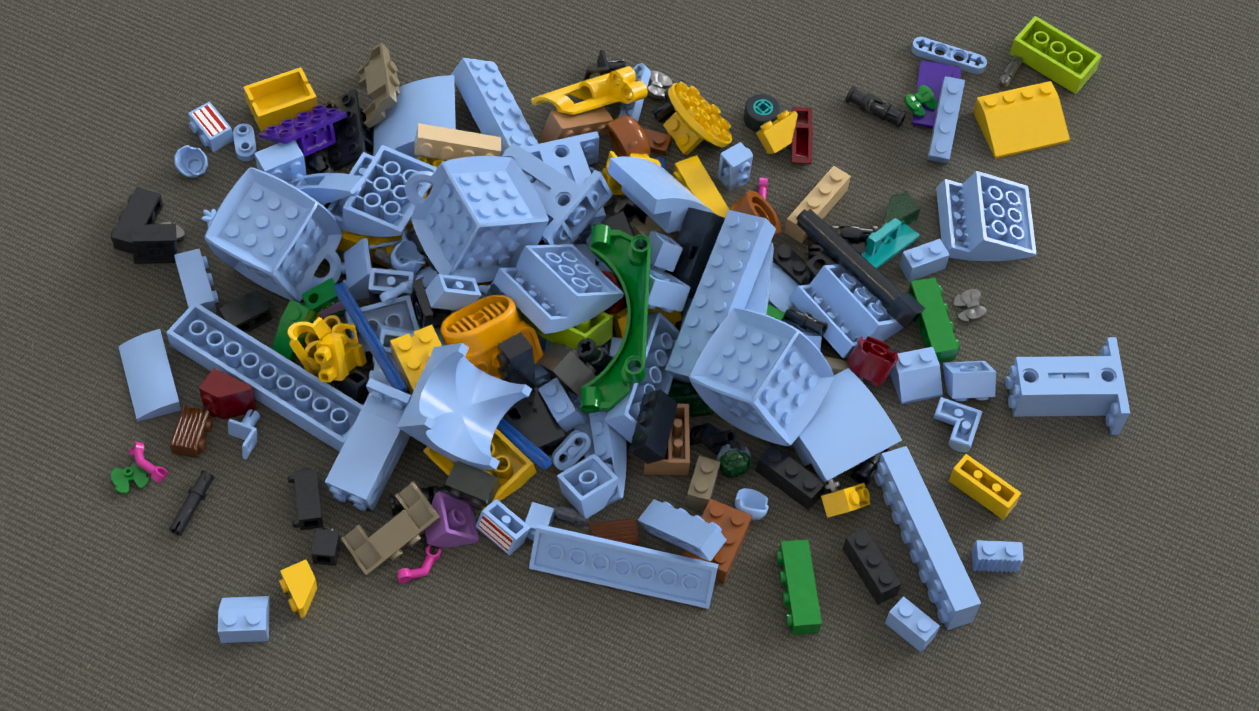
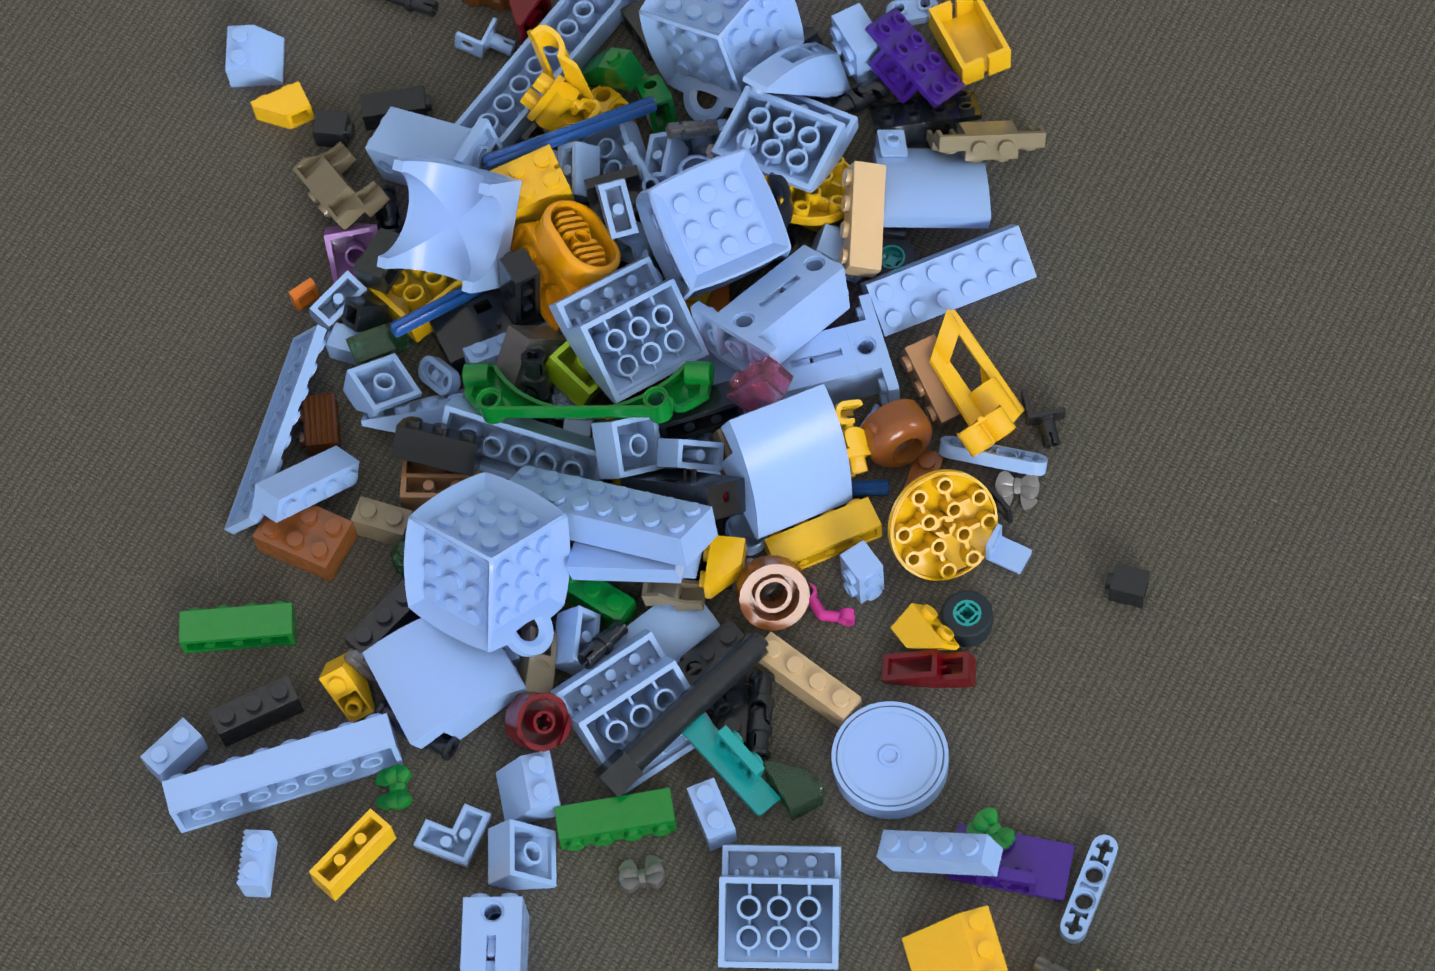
camera: 105 degrees right, 5 degrees up
(370, 254) = (692, 128): none -> flat silver axle
(374, 142) = (891, 143): none -> light blue bracket
(406, 575) = (299, 230): dark pink arm -> none
(490, 558) = (304, 294): none -> orange tile
(518, 501) = (364, 313): none -> black brick
(545, 488) = (376, 344): none -> clear green slope
(618, 189) = (759, 384): none -> clear pink brick
(709, 90) = (1006, 552): none -> light blue bracket
(732, 24) = (1127, 585): none -> black brick
(752, 503) = (350, 575): light blue hair -> none
(874, 156) = (890, 760): none -> light blue brick
(878, 108) = (984, 774): black piece -> none
(930, 466) = (396, 779): none -> green piece

